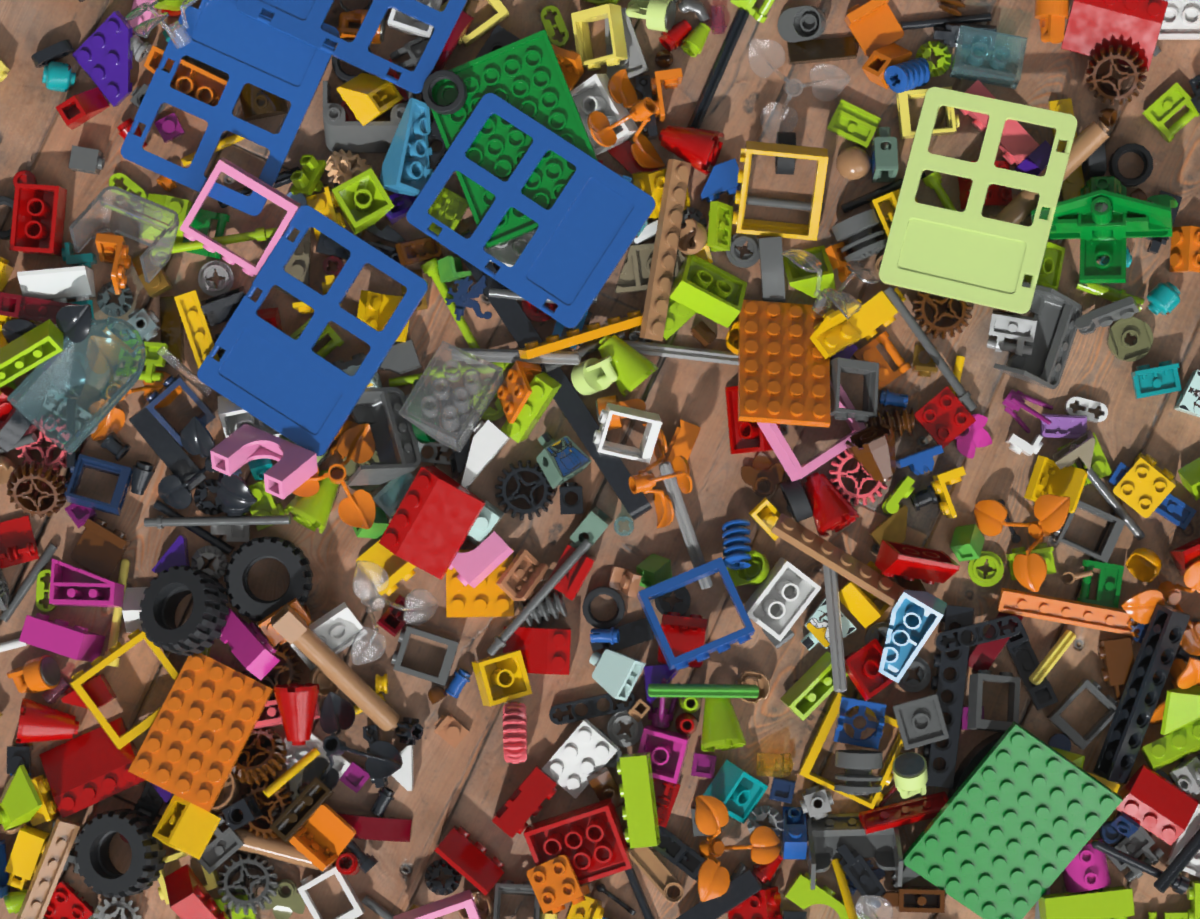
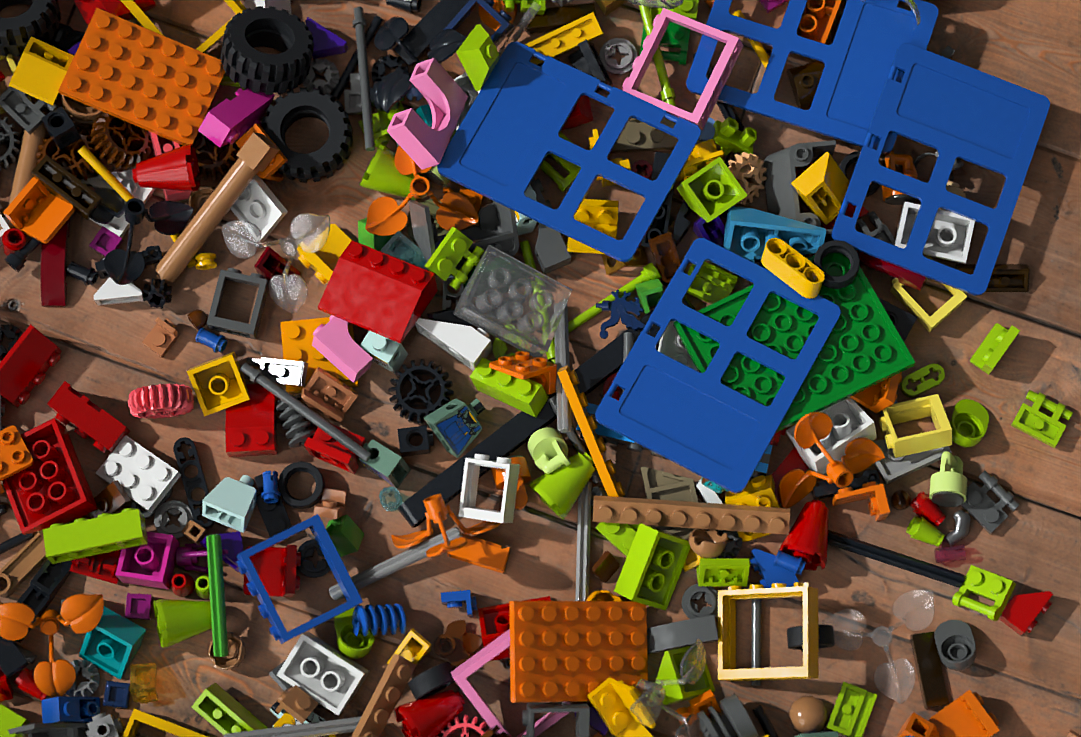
camera: 85 degrees right, 10 degrees down
(211, 408) = (478, 56): none -> lime slope
(403, 450) = (449, 254): none -> lime plate
(455, 128) = (792, 268): none -> yellow beam
(496, 618) = (281, 371): none -> hinge
(717, 164) = (789, 562): none -> blue pin
(722, 473) = (456, 598): none -> blue bracket
(808, 624) = (296, 703): none -> medium nougat bracket

